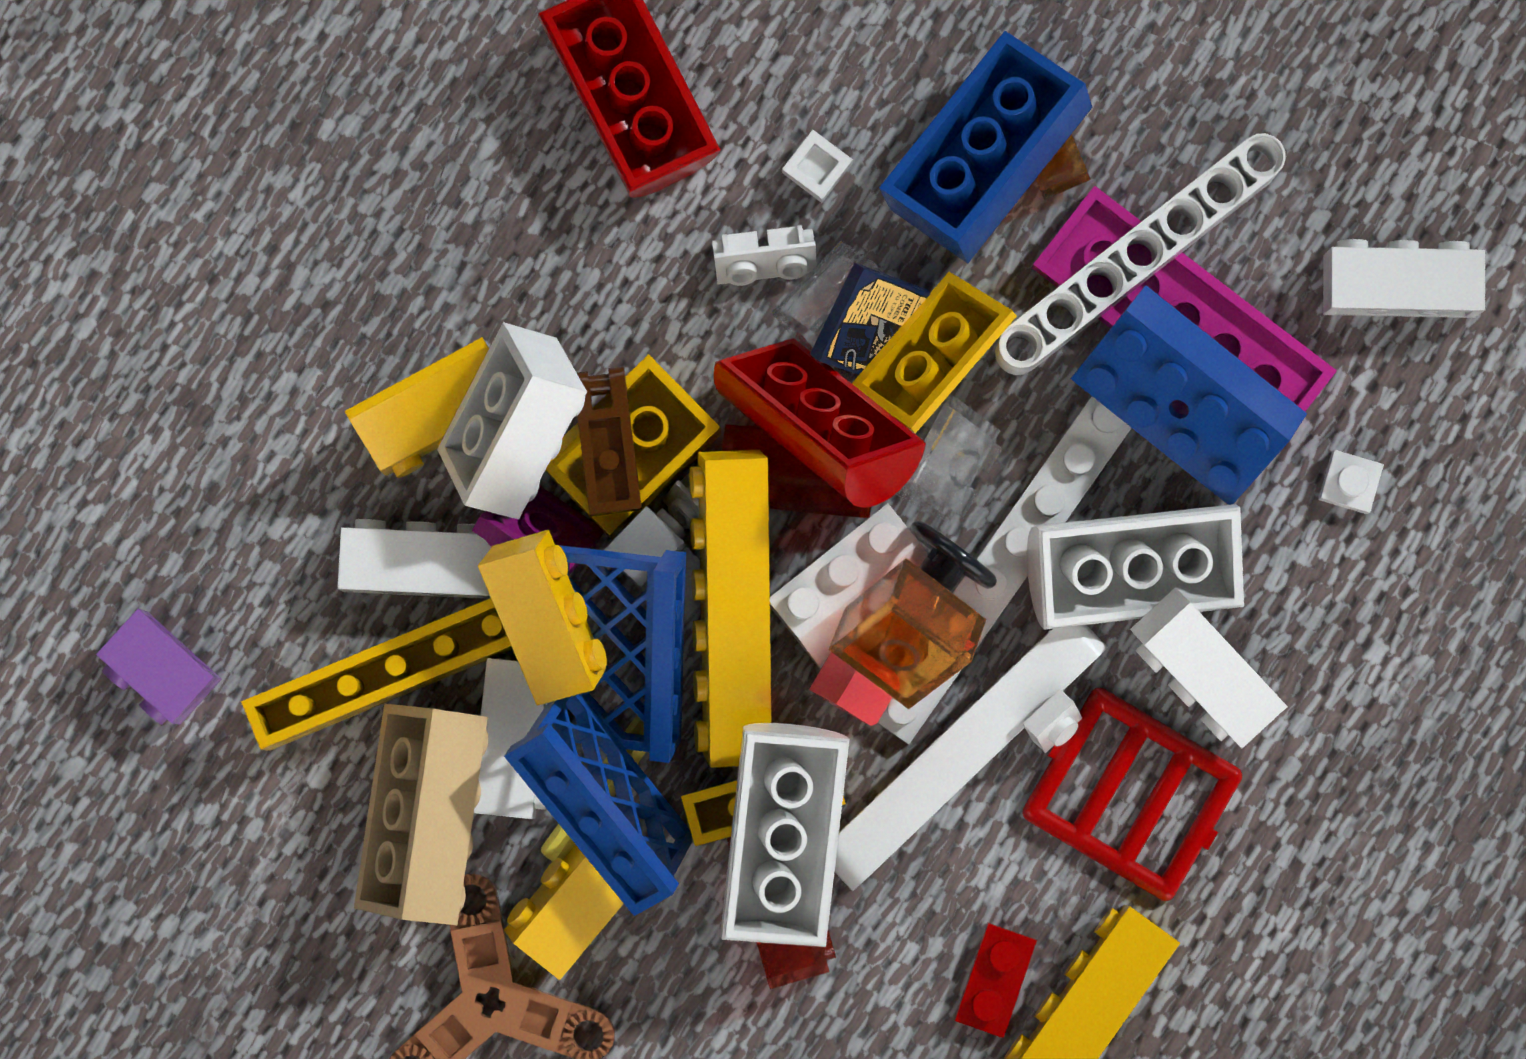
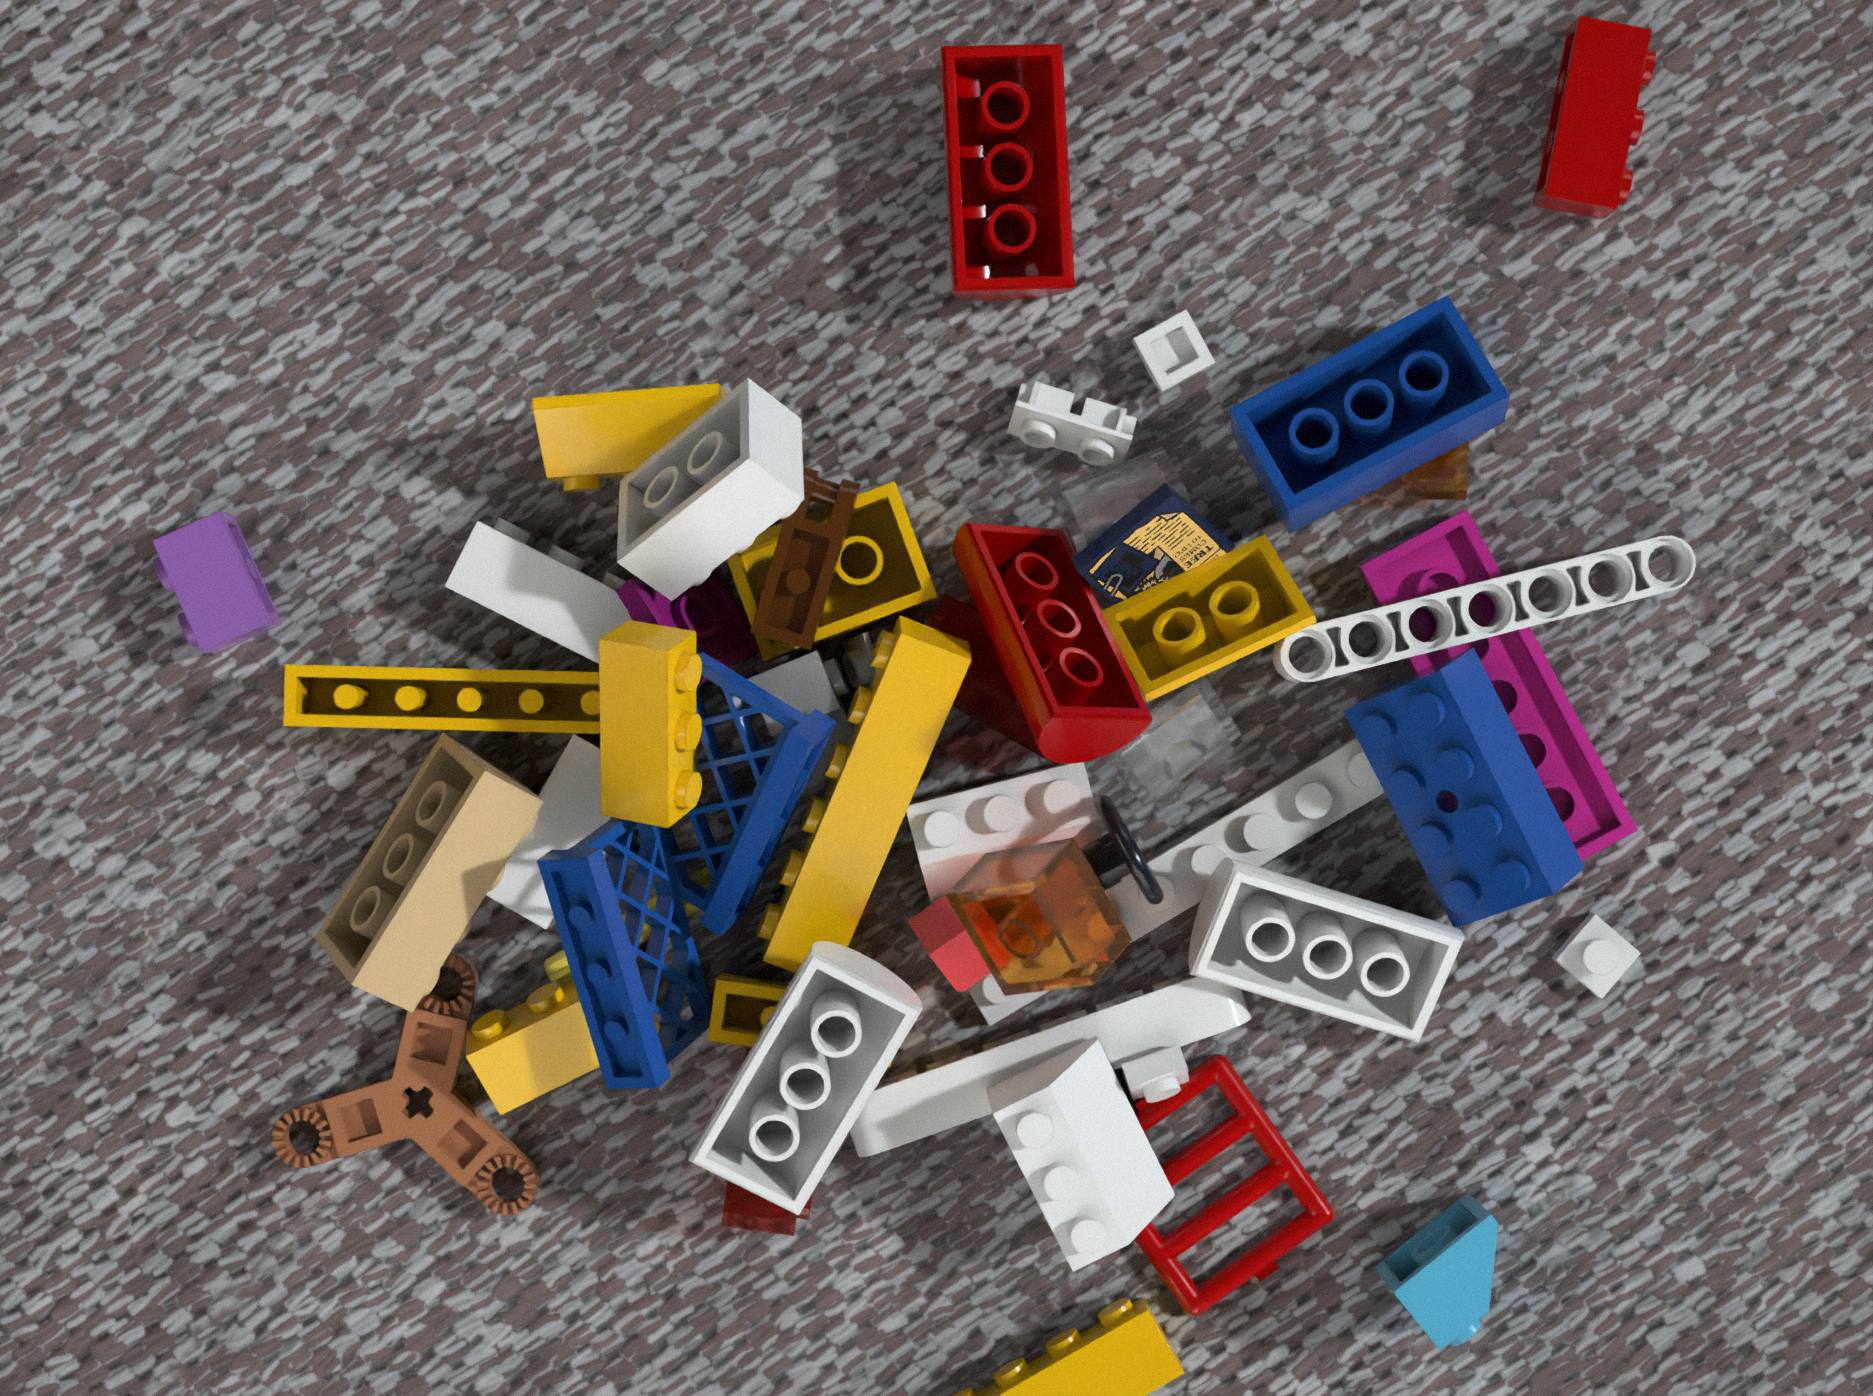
camera: 25 degrees right, 5 degrees up
(995, 980) = (969, 1317): red plate -> none
(1023, 804) = (1081, 1151): none -> white slope
(1206, 669) = (1346, 1094): white brick -> none
(1346, 774) = (1446, 1272): none -> medium azure slope
(1404, 280) = (1757, 763): white brick -> none

